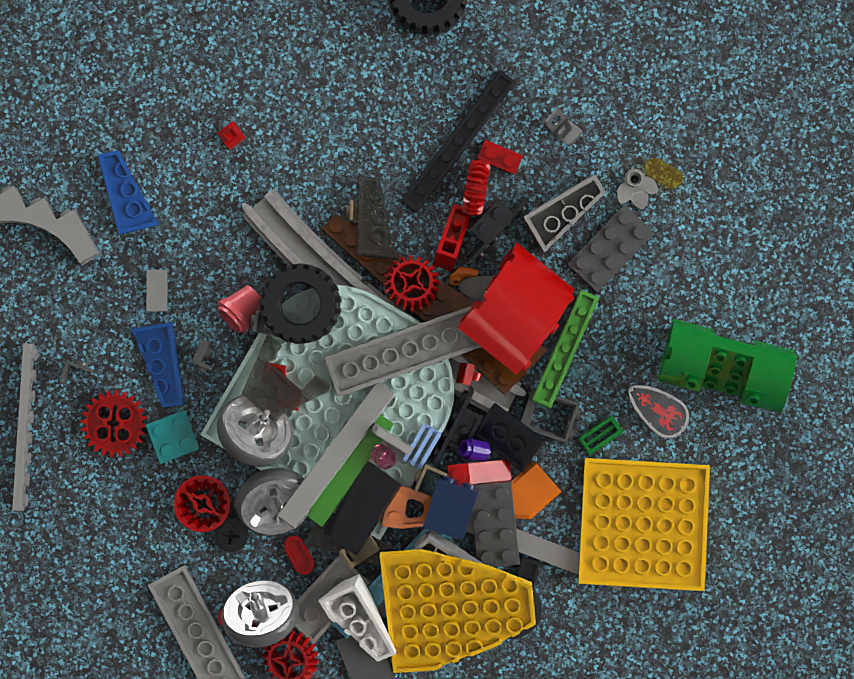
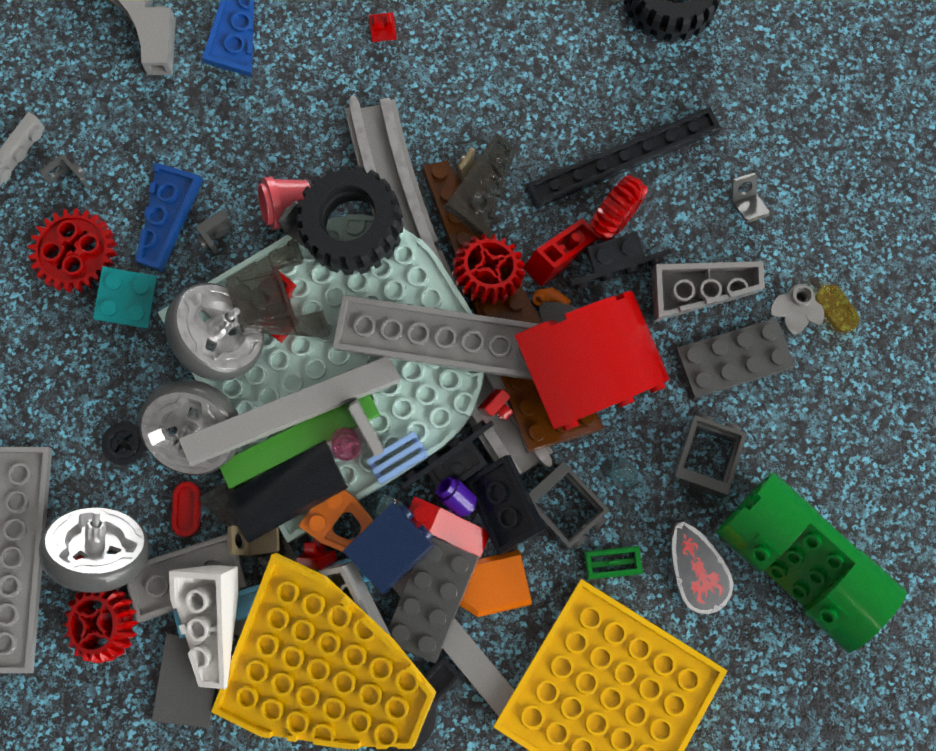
camera: 20 degrees right, 10 degrees down
(157, 291) = (207, 139): light grey tile -> none
(187, 492) = (97, 376): red gear -> none
(404, 539) = (316, 556): none -> red tile
(420, 474) = (376, 489): dark tan bracket -> none
(500, 157) = (662, 197): red plate -> none
(565, 349) = (623, 440): bright green tile -> none
(633, 349) = (701, 482): none -> dark grey window

